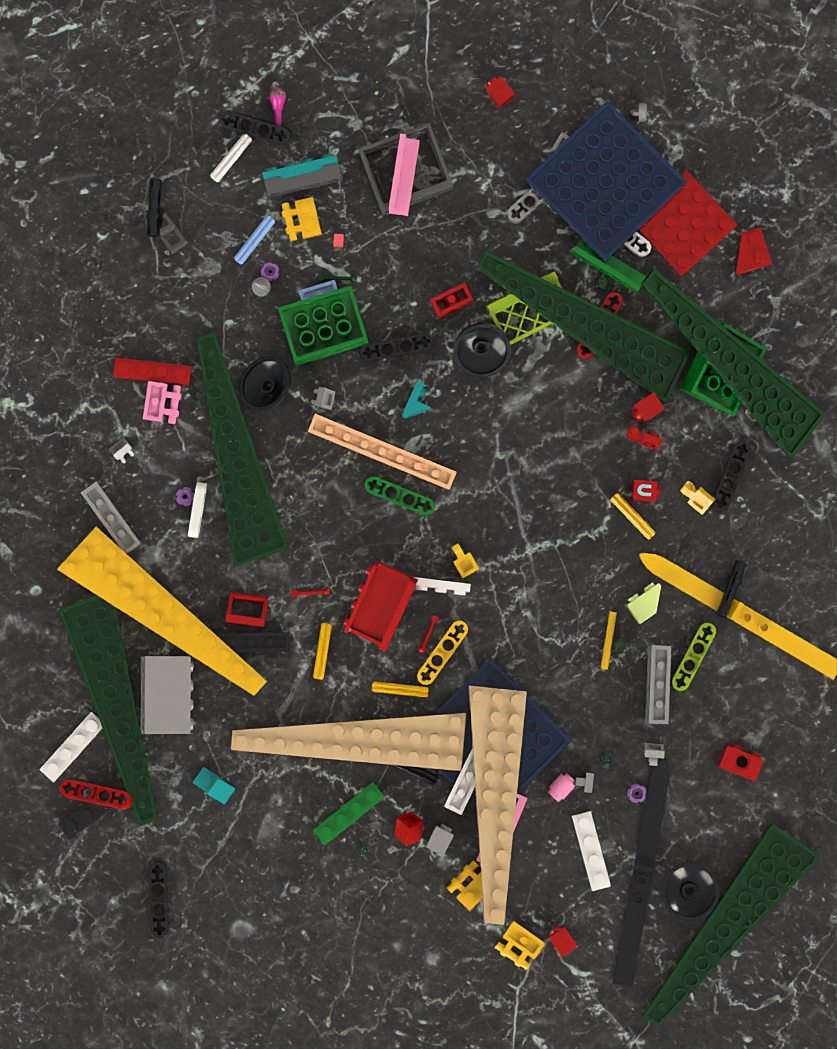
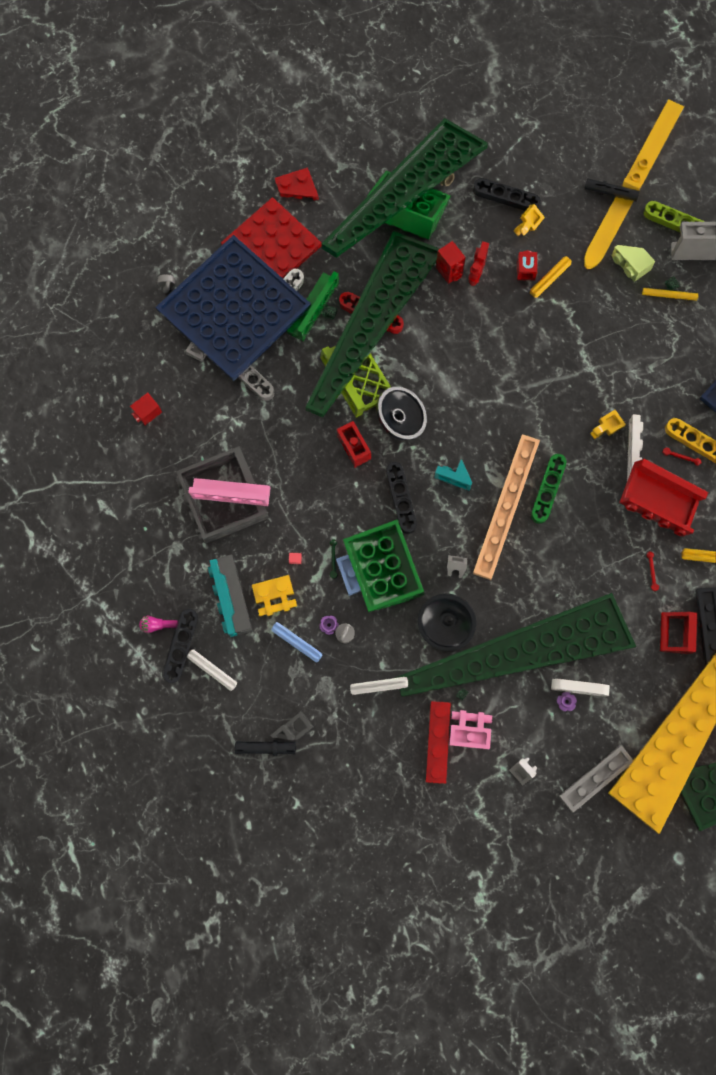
camera: 90 degrees left, 10 degrees down
(207, 316) = (380, 685): none -> white axle

